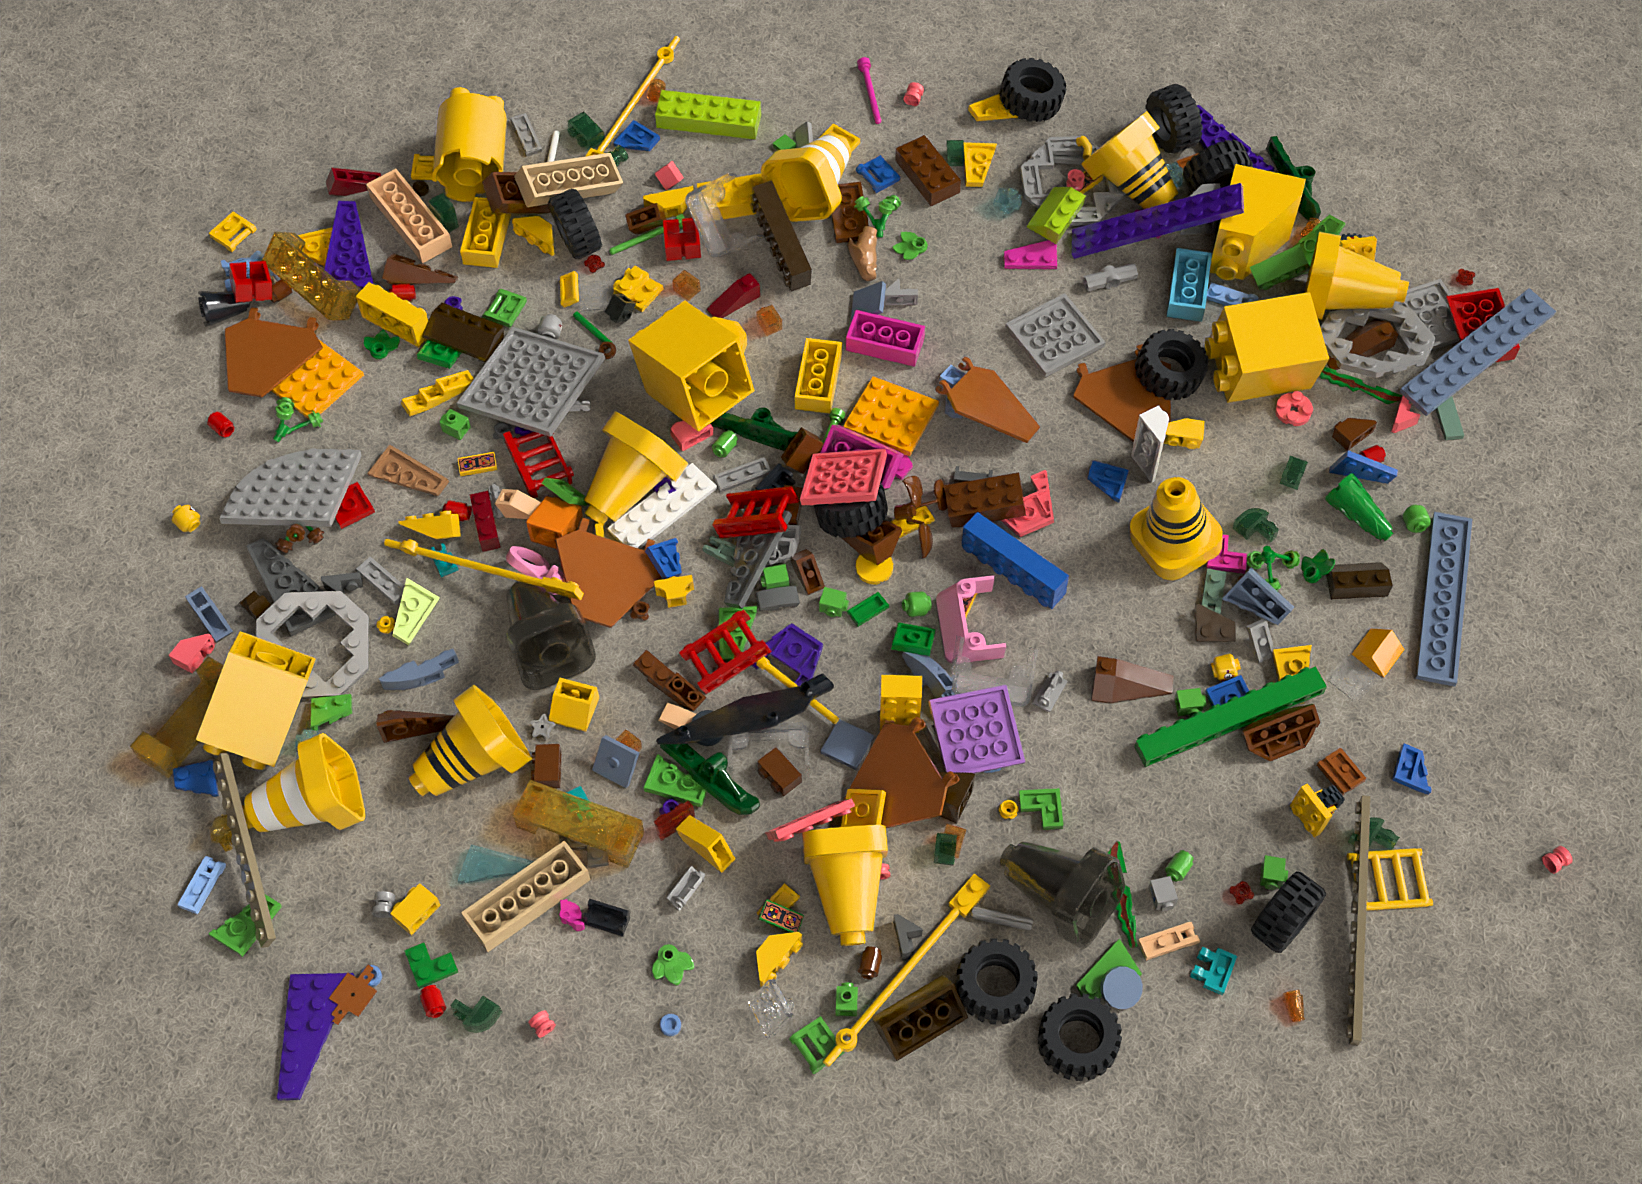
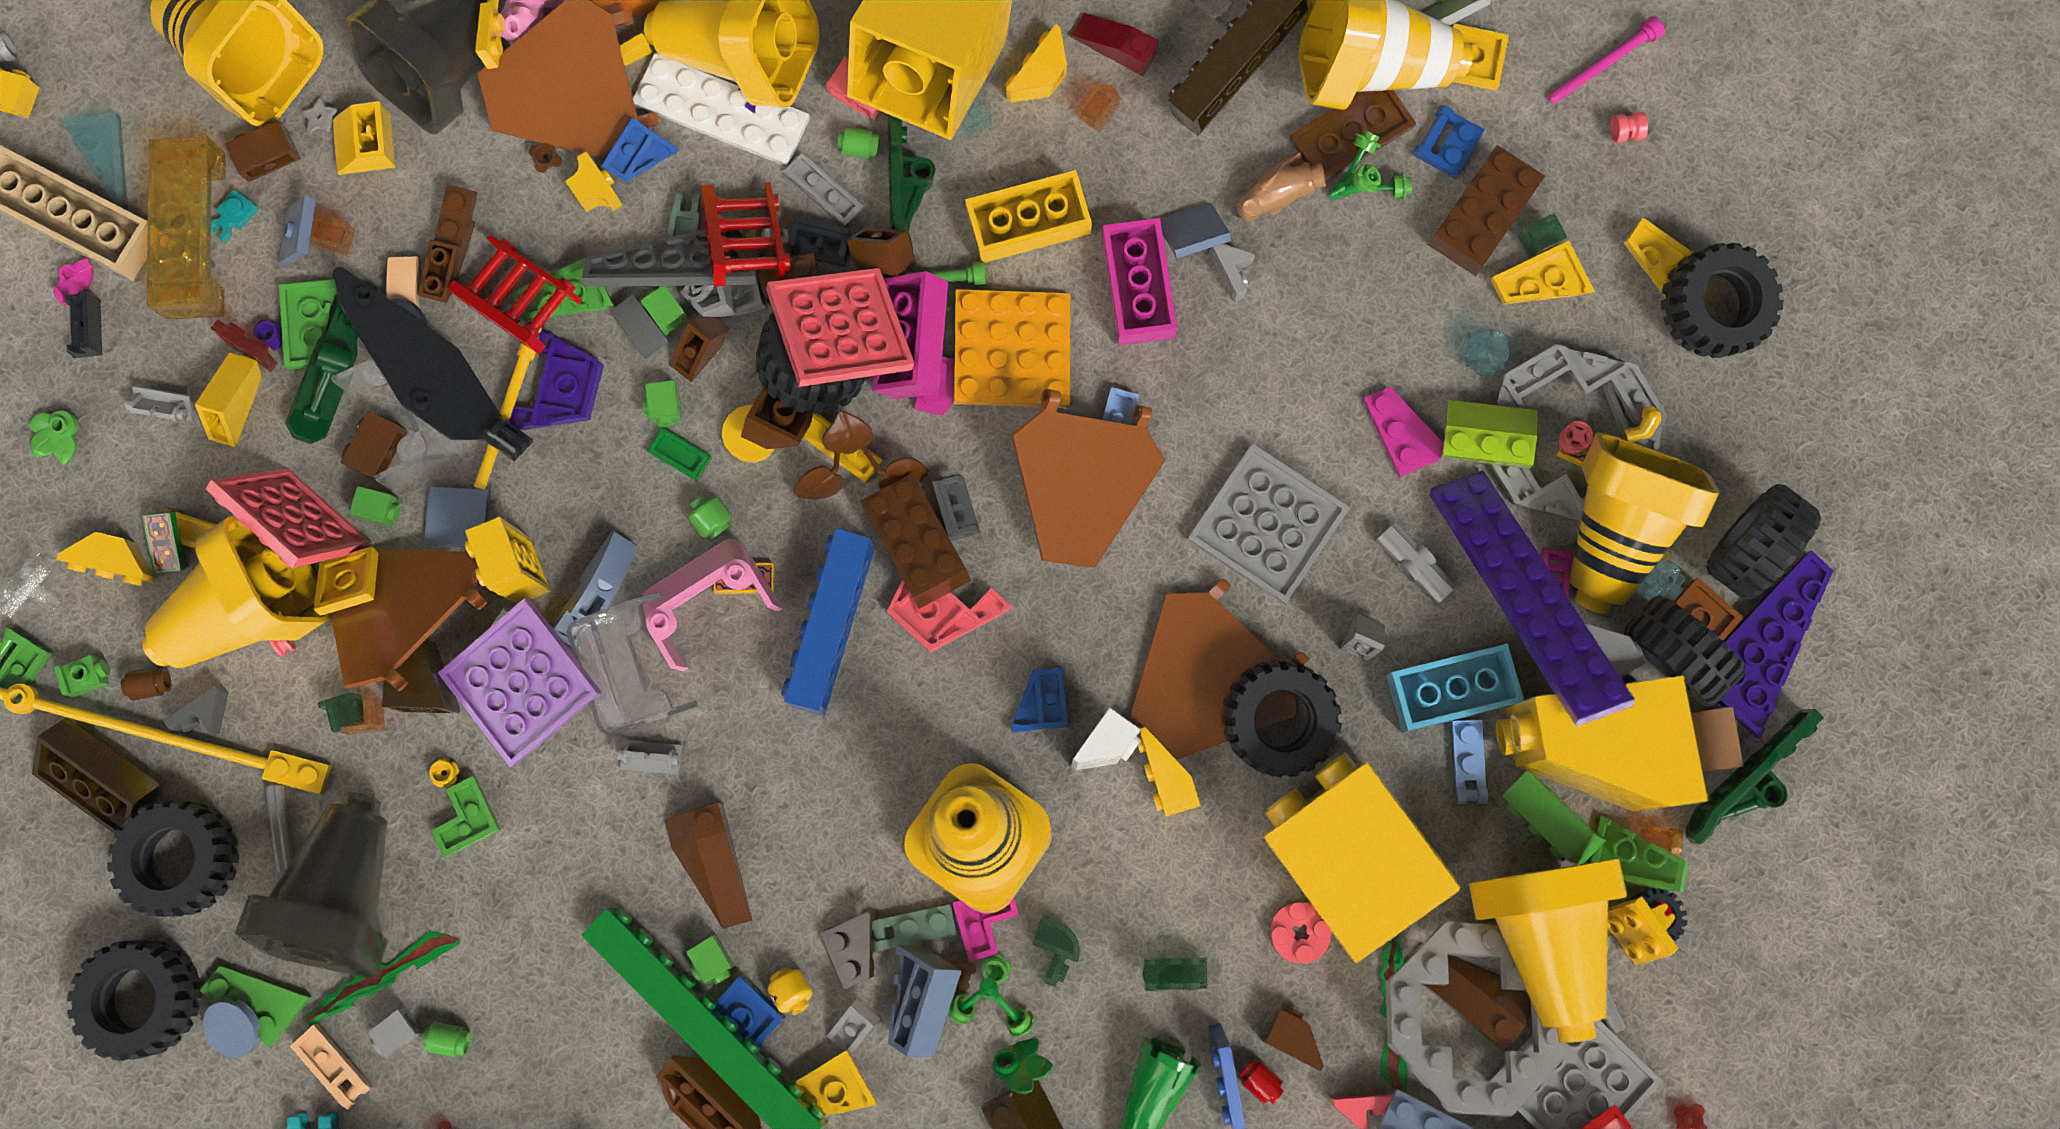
camera: 65 degrees right, 20 degrees up
(820, 782) = (375, 507): none -> bright green brick
(909, 245) = (1333, 243): bright green plate -> none
(913, 639) = (649, 536): green plate -> none
(1143, 312) = (1364, 636): none -> light grey slope

